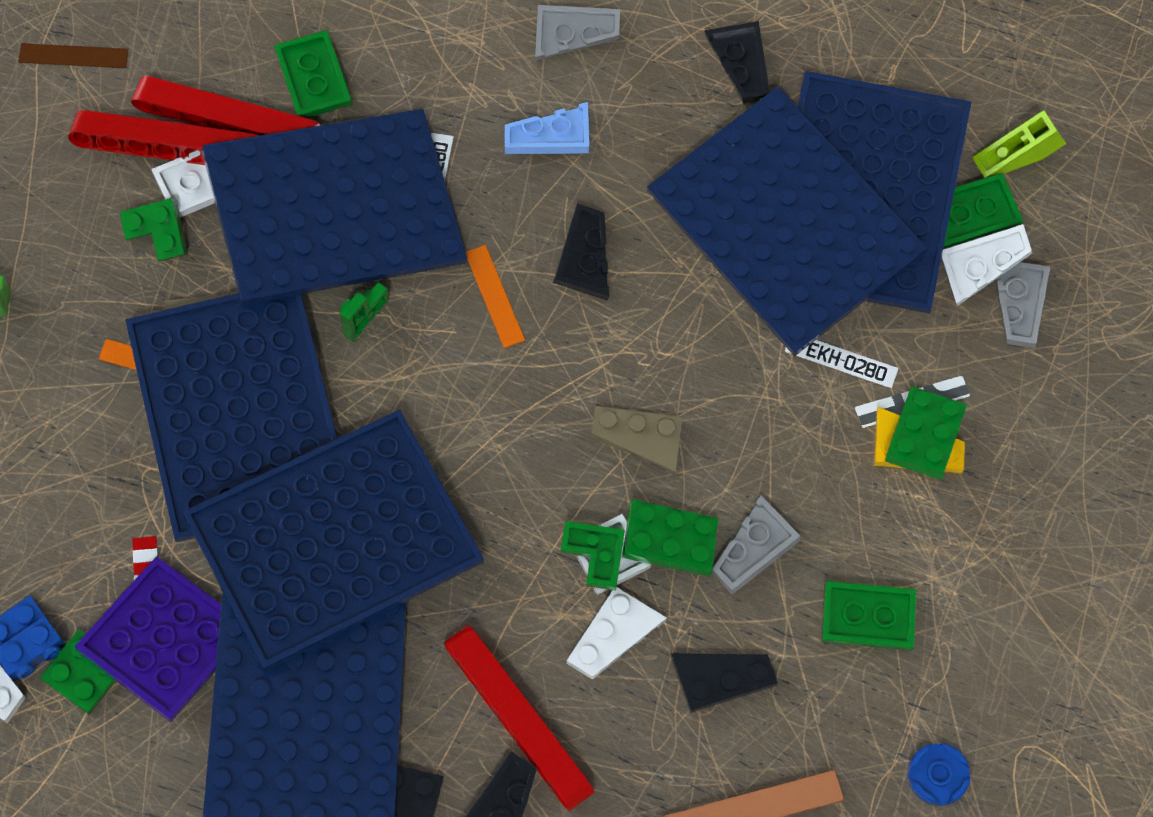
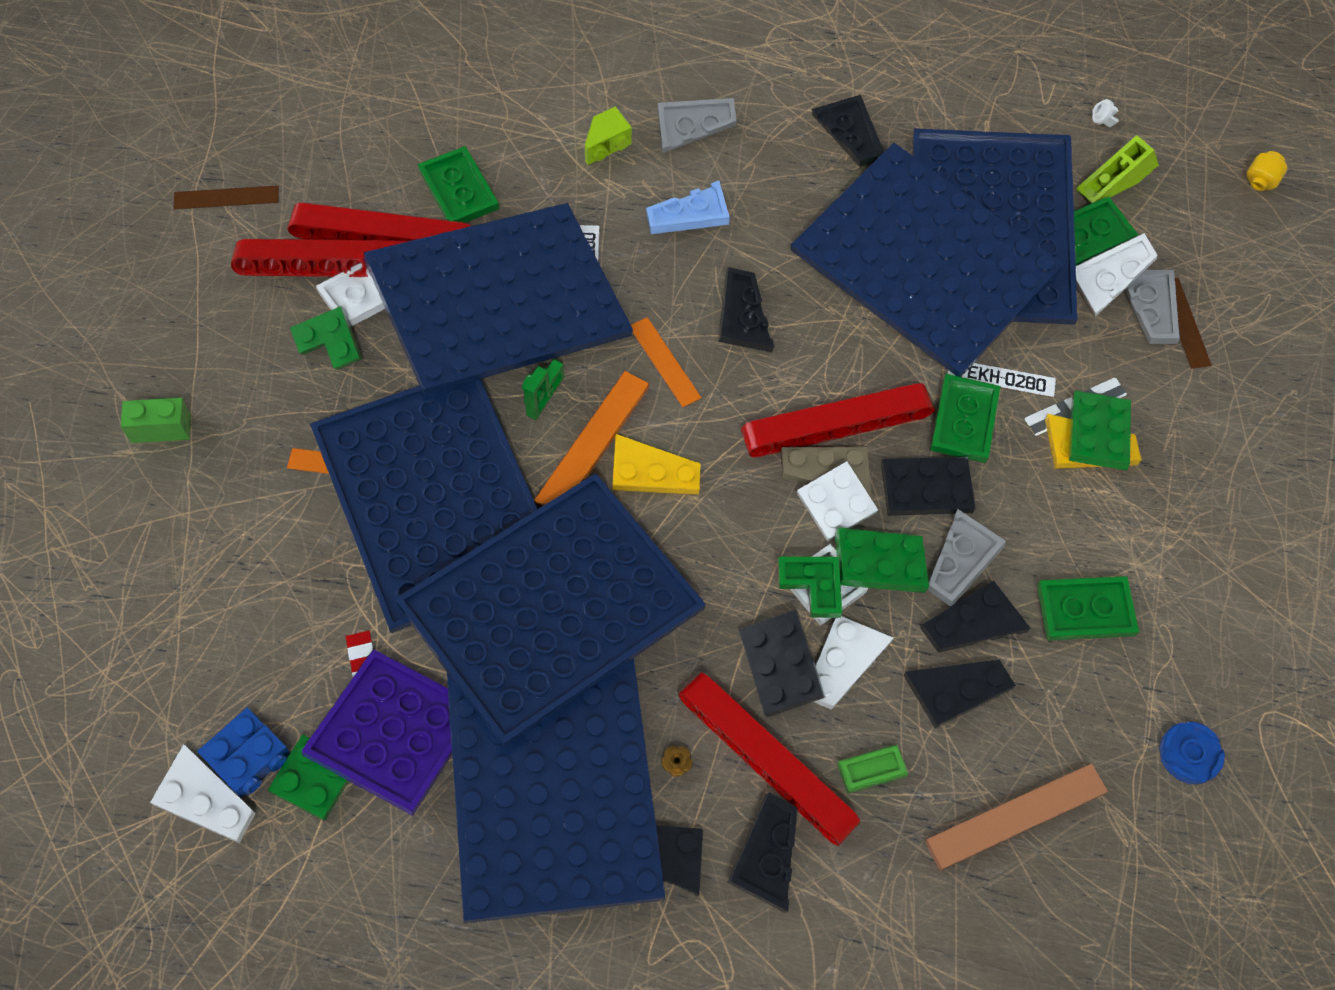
camera: 10 degrees left, 5 degrees down
(408, 369) = (595, 437): none -> orange tile
(430, 715) = (673, 768): none -> pearl gold plate
(460, 411) = (652, 470): none -> yellow wing
(477, 35) = (607, 135): none -> lime slope
(550, 627) = (782, 663): none -> black plate
(618, 743) = (872, 769): none -> bright green tile
(639, 469) = (837, 500): none -> white plate
(658, 384) = (837, 419): none -> red beam
(737, 466) = (927, 486): none -> black plate
(756, 609) = (974, 619): none -> black wing
(791, 400) = (965, 418): none -> green plate
(1022, 74) = (1104, 112): none -> white plate
(1053, 331) = (1189, 332): none -> reddish brown sticker

